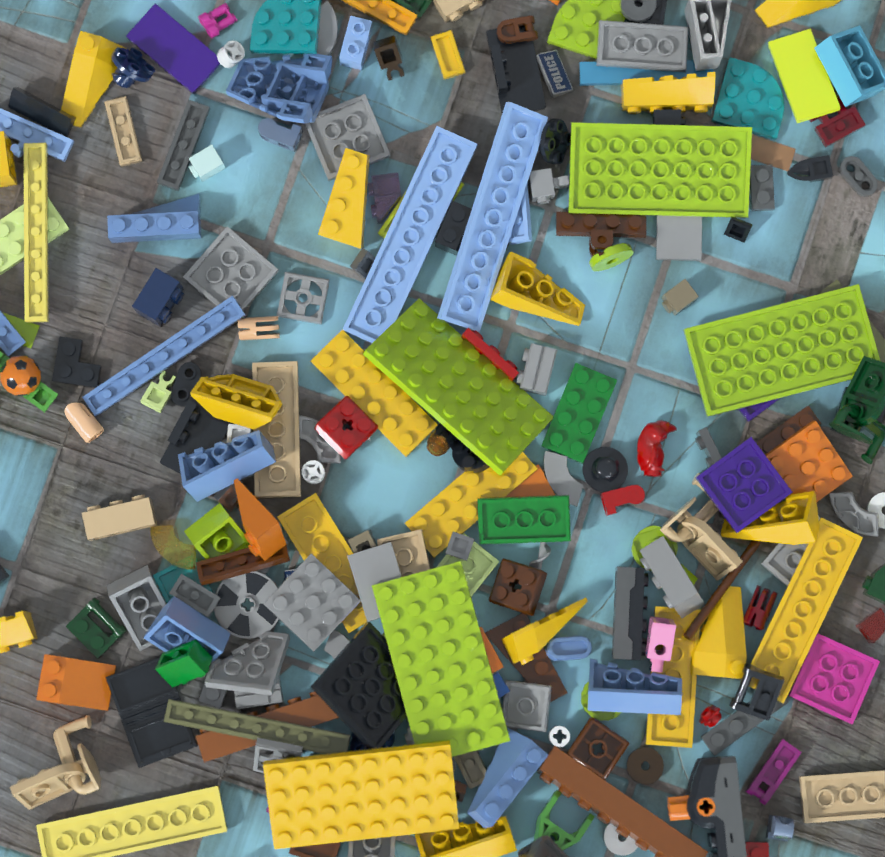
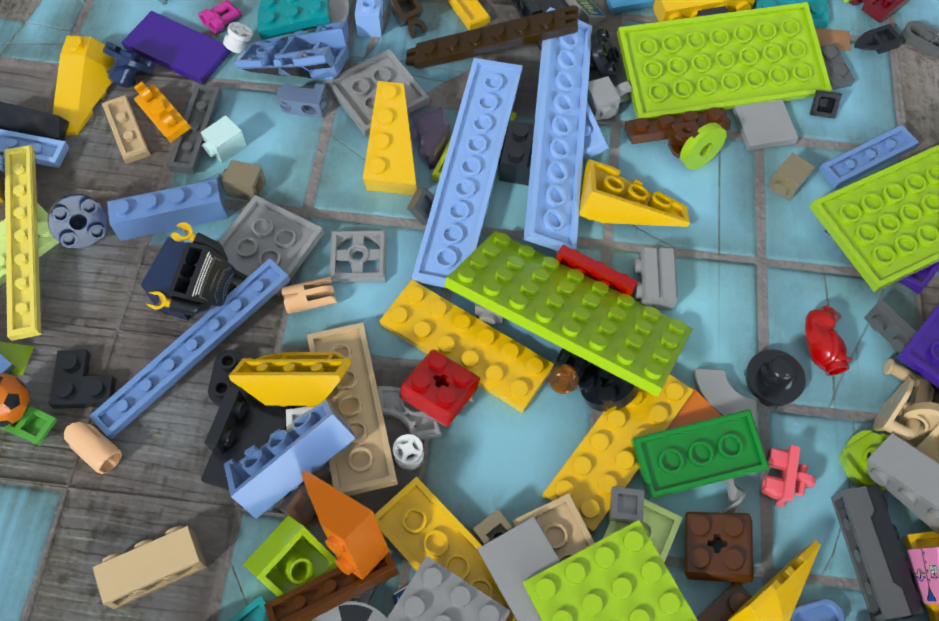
camera: 10 degrees left, 20 degrees down
(81, 225) = (77, 221): none -> plate
(156, 124) = (161, 111): none -> light orange plate
(157, 394) = (190, 396): yellowish green plate -> none
(171, 548) = (231, 594): clear yellow tile -> none
(178, 309) = (201, 277): none -> black torso
(218, 209) = (243, 180): none -> dark tan brick
(454, 114) = (494, 37): none -> dark brown hinge
(577, 555) = (789, 479): none -> coral hips
(579, 413) = (720, 321): green plate -> none
(619, 497) = (814, 402): red leg -> none
(755, 289) = (868, 156): none -> medium blue plate

